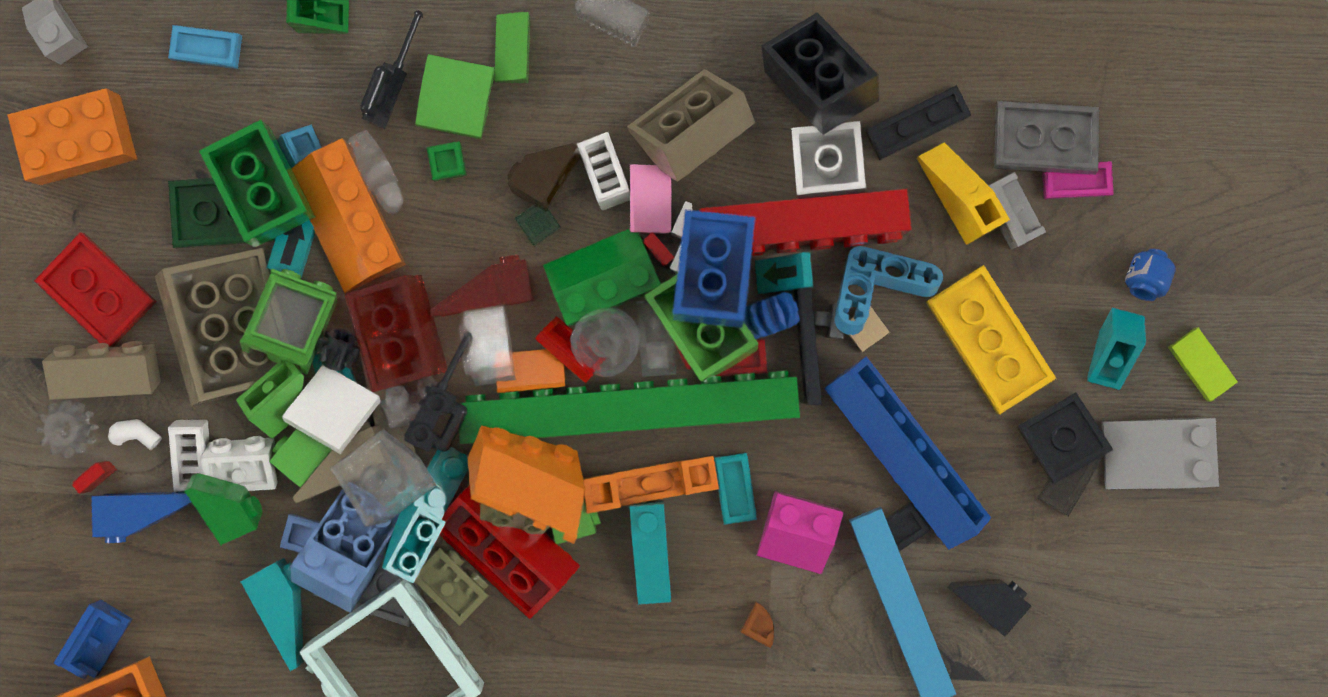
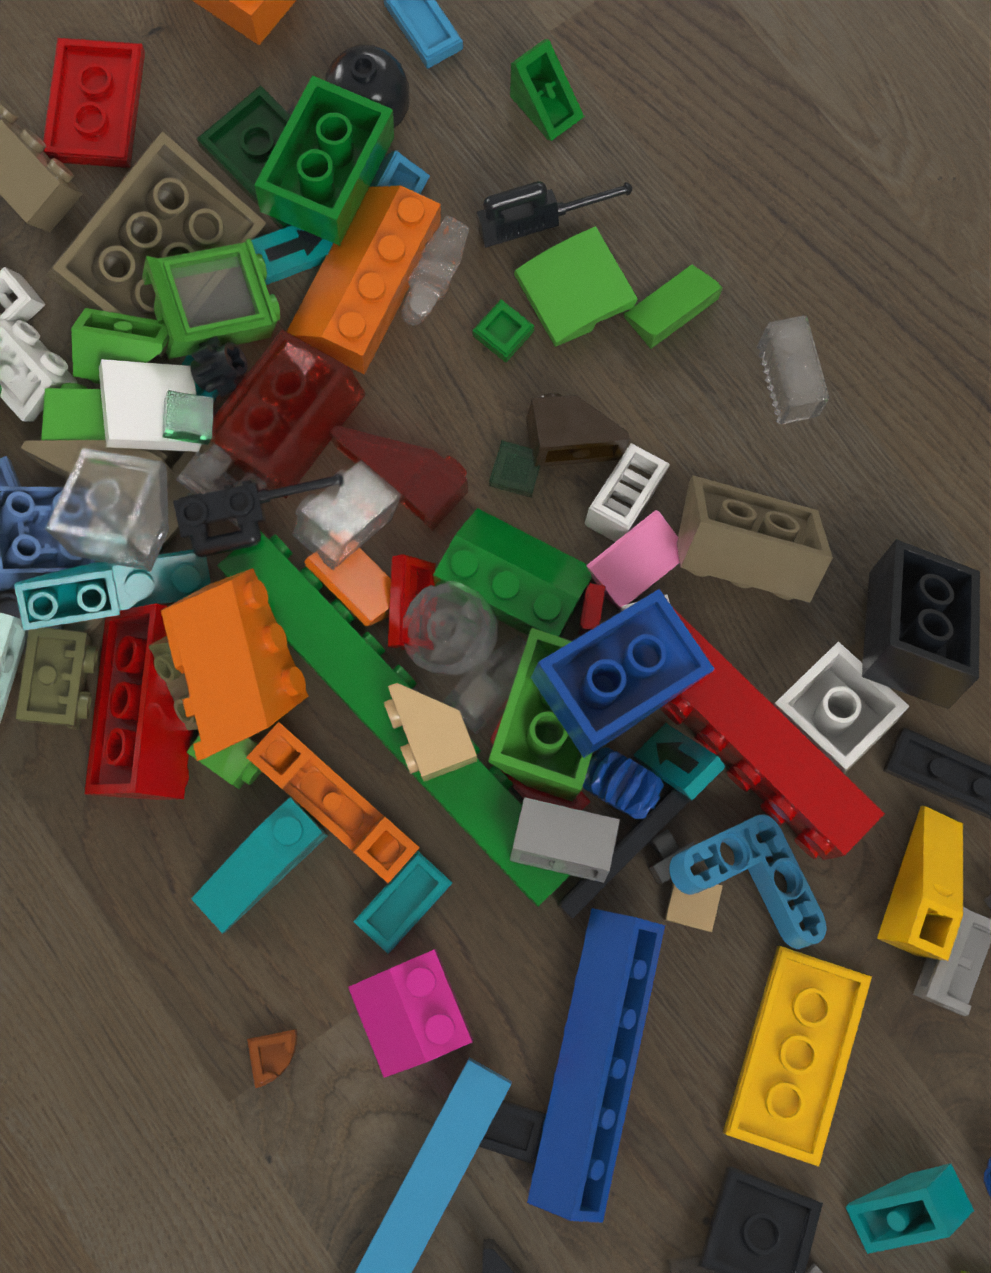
camera: 50 degrees right, 10 degrees down
(221, 113) = (373, 75): none -> black cylinder
(358, 392) = (188, 417): none -> clear green tile
(658, 398) = (433, 730): none -> tan slope
(777, 374) = (564, 840): none -> light grey hinge

